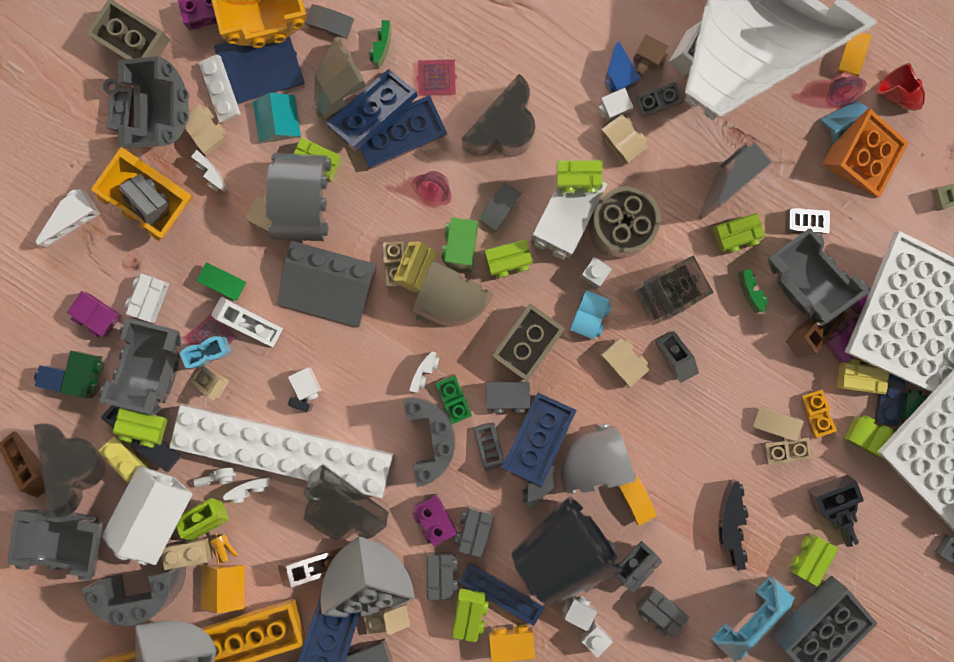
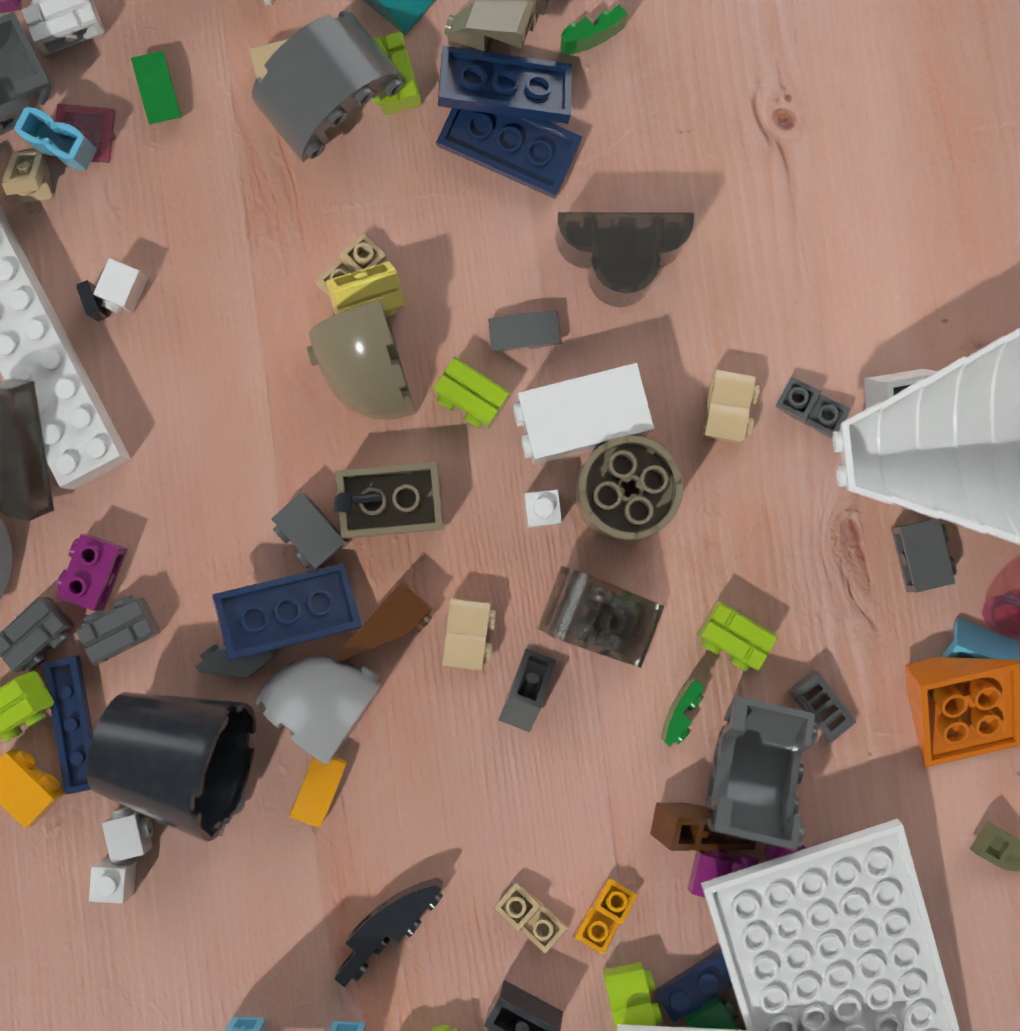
camera: 45 degrees right, 0 degrees up
(246, 321) = (134, 156): white slope -> none
(325, 283) = (258, 209): dark grey slope -> none
(428, 365) = (263, 408): white slope -> none
(433, 188) = (476, 233): clear pink hat -> none
(436, 77) = (611, 129): piece -> none
(442, 438) = (191, 494): dark grey cylinder -> none
(453, 399) = (253, 472): green slope -> none
(461, 244) = (433, 319): bright green brick -> none
(486, 428) = (215, 566): dark grey slope -> none
(511, 365) = (344, 501): none -> black hand
(579, 175) = (631, 385): lime brick -> none
(586, 394) = (393, 619): none -> reddish brown slope
(590, 314) = (487, 545): medium azure brick -> none
(615, 105) = (760, 361): white brick -> none
(620, 71) = (804, 334): blue slope -> none
(638, 566) = (238, 856): dark grey brick -> none
(650, 54) = (856, 350): medium nougat brick -> none
(662, 612) = (210, 932): dark grey brick -> none
(735, 174) = (807, 570): dark grey slope -> none
(777, 109) = (924, 555): none -> dark grey brick
(778, 423) = (551, 878): tan slope -> none
(862, 377) = (691, 930): light yellow brick -> none

